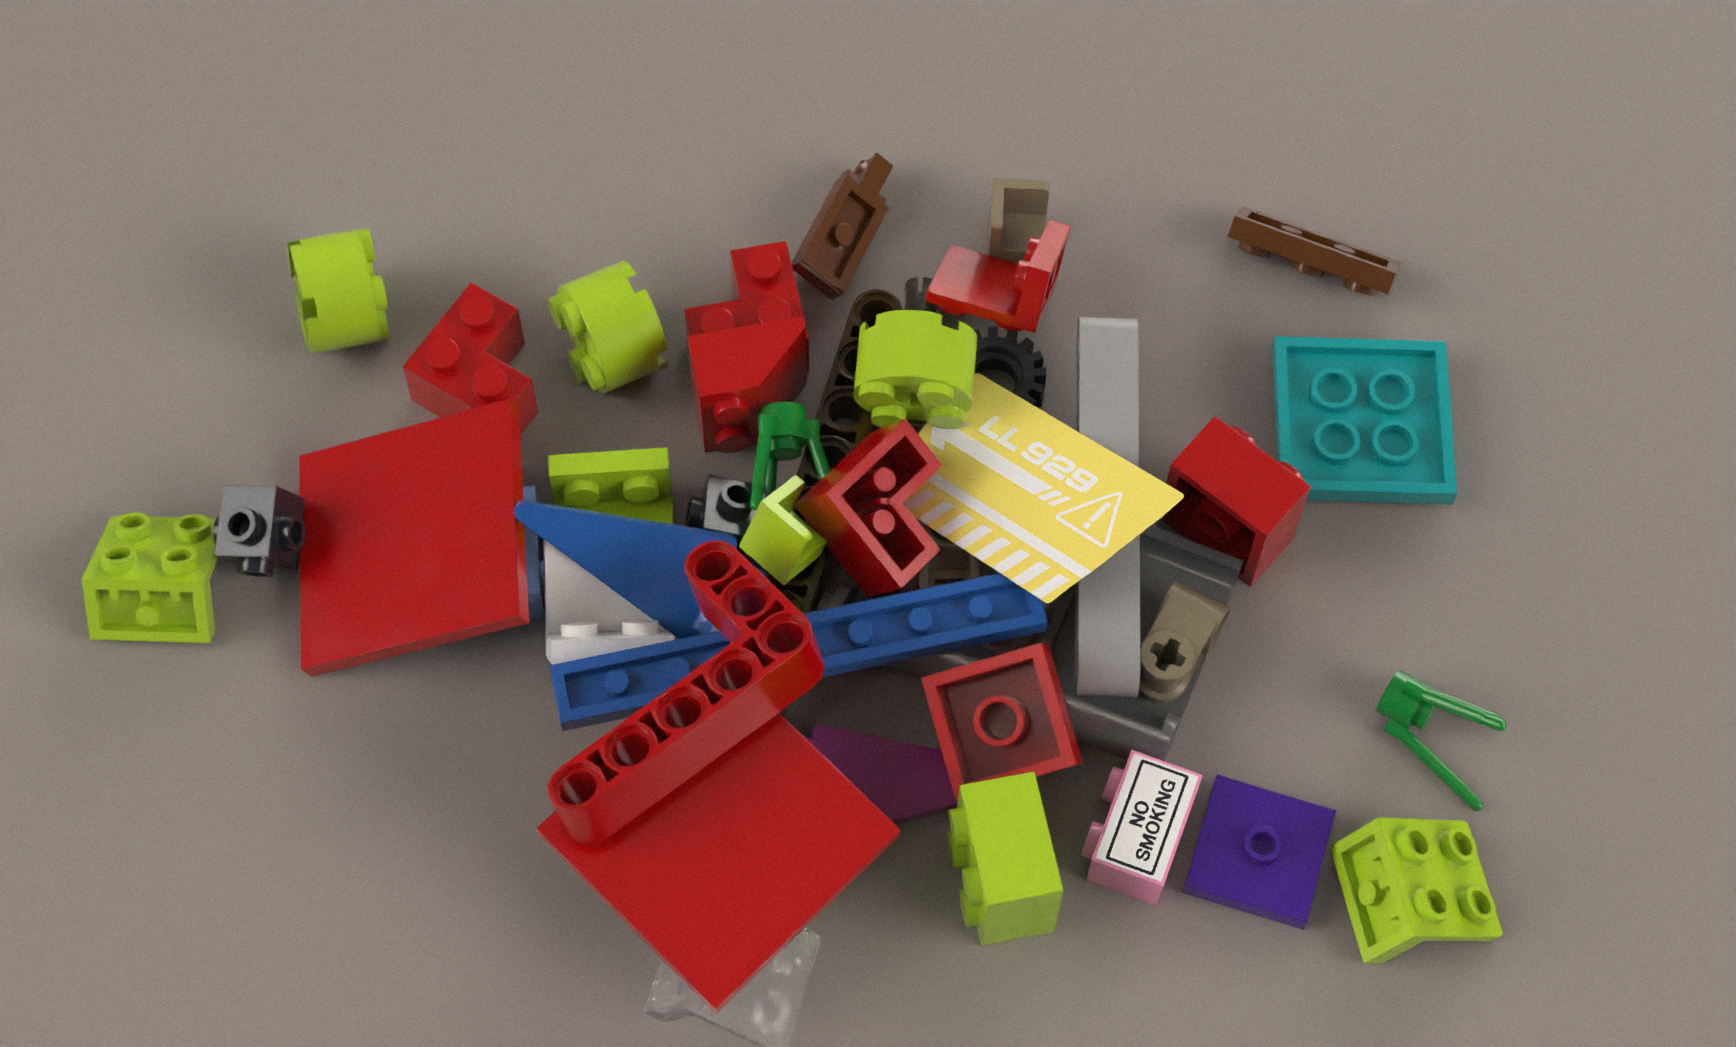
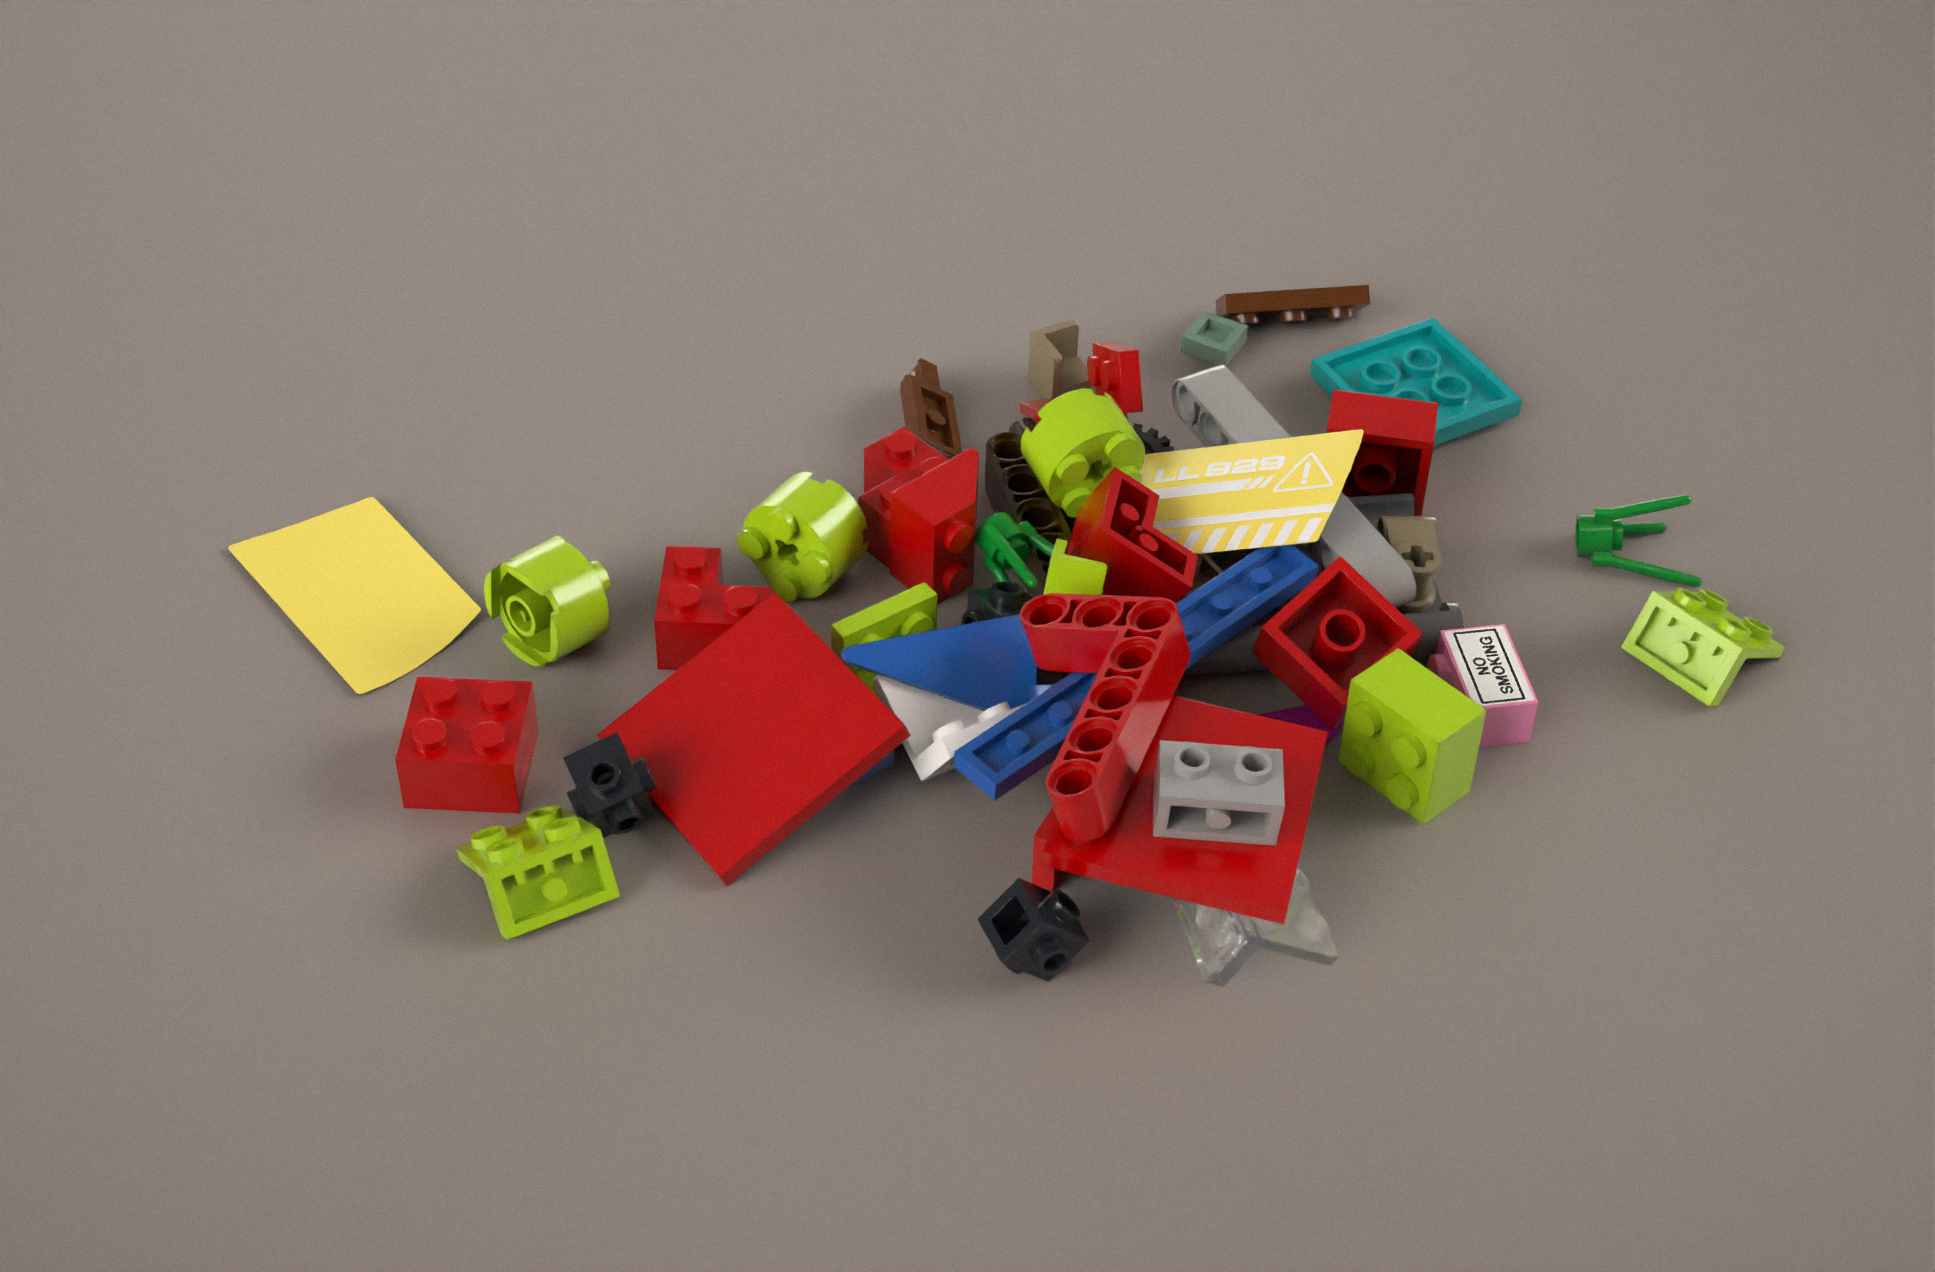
camera: 30 degrees left, 20 degrees down
(177, 414) = (467, 744): none -> red brick
(211, 180) = (360, 591): none -> light yellow sticker
(512, 884) = (1034, 929): none -> black brick
(725, 854) = (1218, 793): none -> light grey brick
(1200, 258) = (1214, 338): none -> sand green plate
(1260, 852) = (1579, 672): dark purple plate -> none

